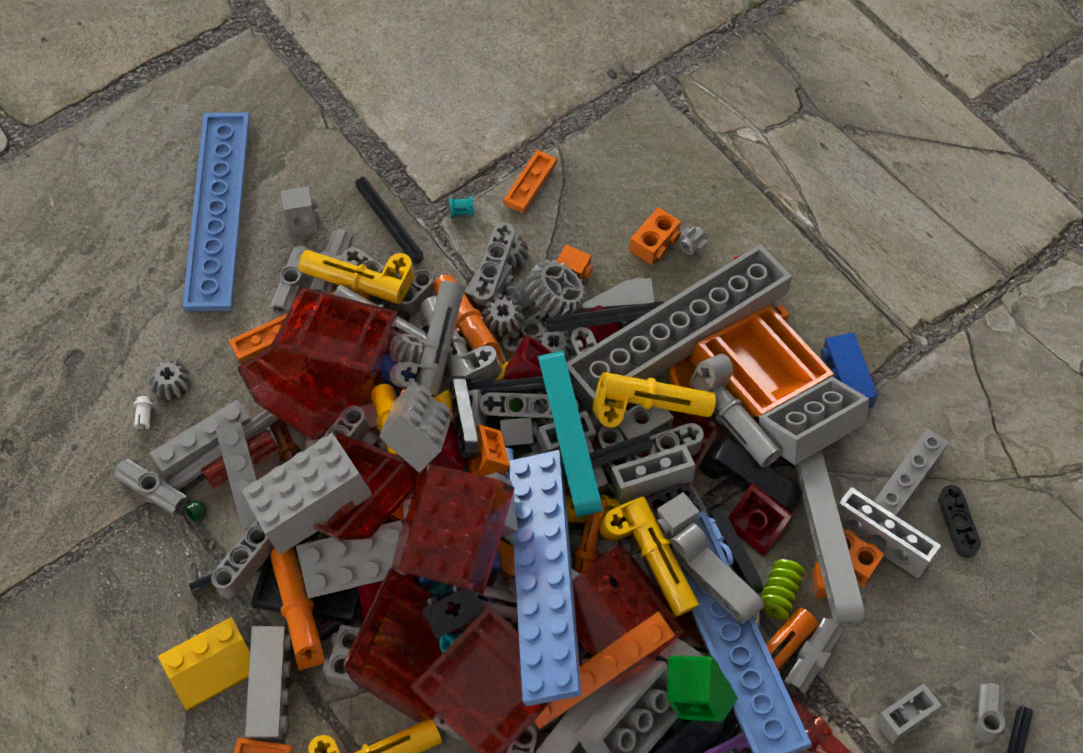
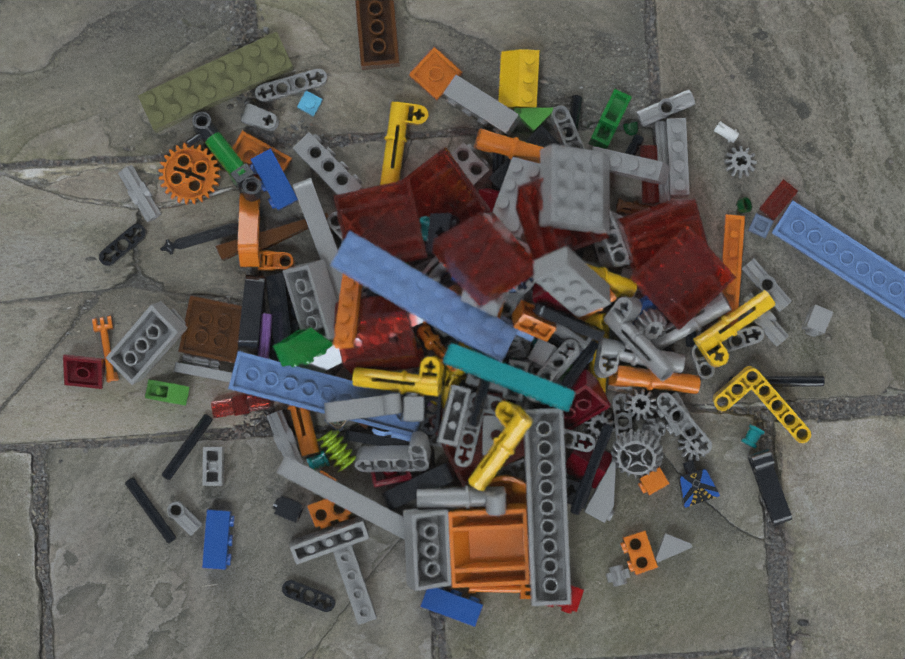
camera: 125 degrees right, 25 degrees up
(190, 324) = (778, 200): none -> clear red tile
(199, 536) = (610, 119): none -> green slope
(217, 349) = (744, 205): none -> dark green hinge
(219, 495) = (634, 146): none -> black axle
(230, 324) = (760, 225): none -> sand blue tile
(245, 616) = (533, 117): none -> bright green slope
(404, 230) = (767, 399): none -> yellow beam
(489, 177) = (769, 486): none -> black beam
(530, 181) = (743, 498): orange plate -> none
(550, 225) = (696, 485): none -> torso
(628, 212) = (670, 546): none -> light grey slope
(742, 517) = (396, 458): none -> light grey beam
(810, 603) = (318, 461): none -> teal bush
(887, 594) = (288, 508): none -> black brick
(982, 656) = (218, 539): none -> blue brick

